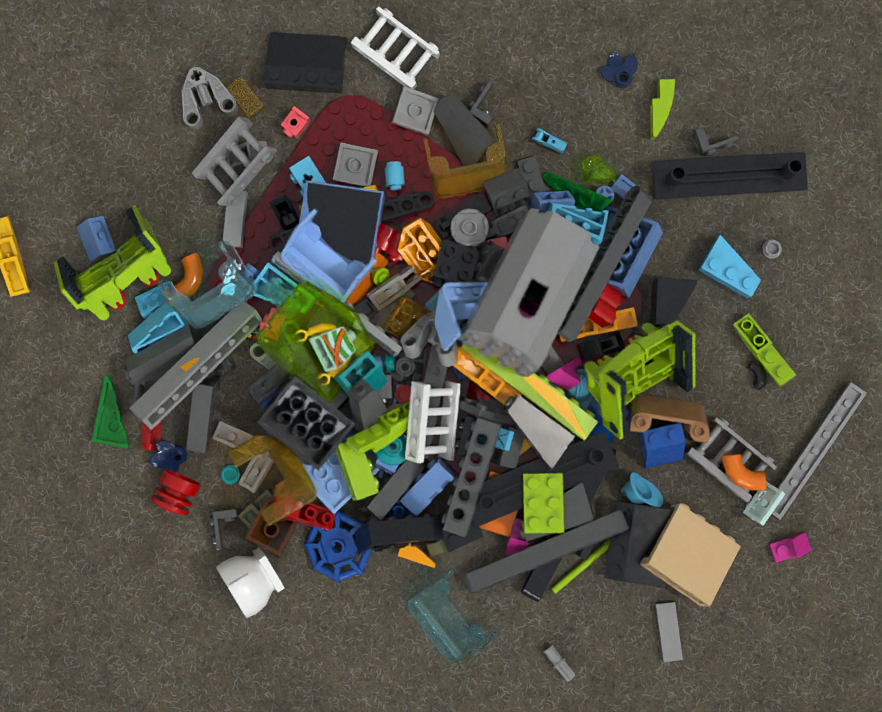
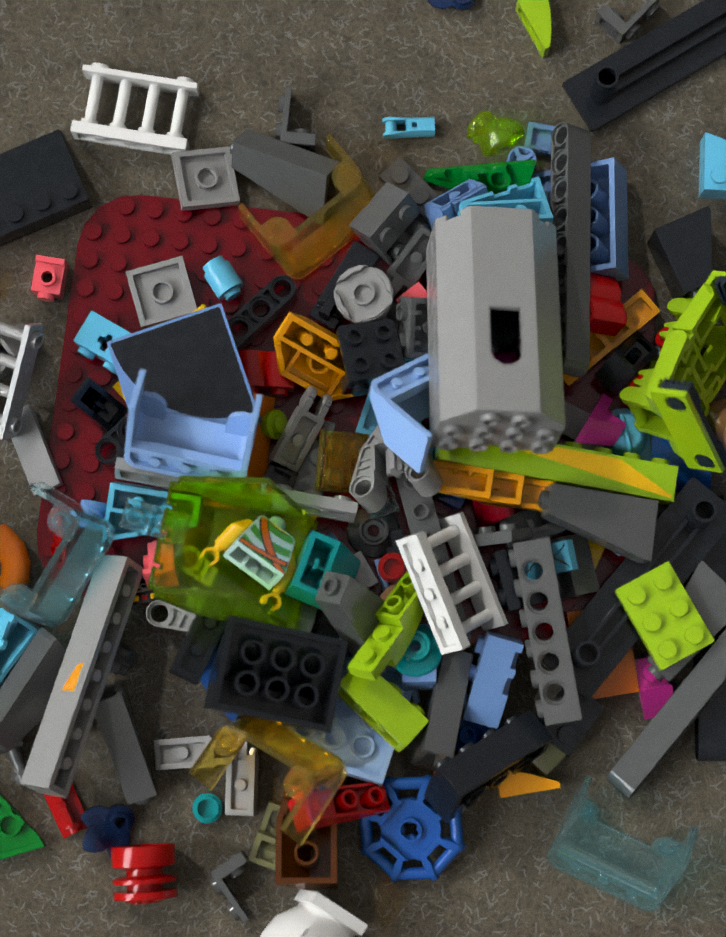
camera: 30 degrees left, 5 degrees down
(389, 363) = (348, 536): teal plate -> none

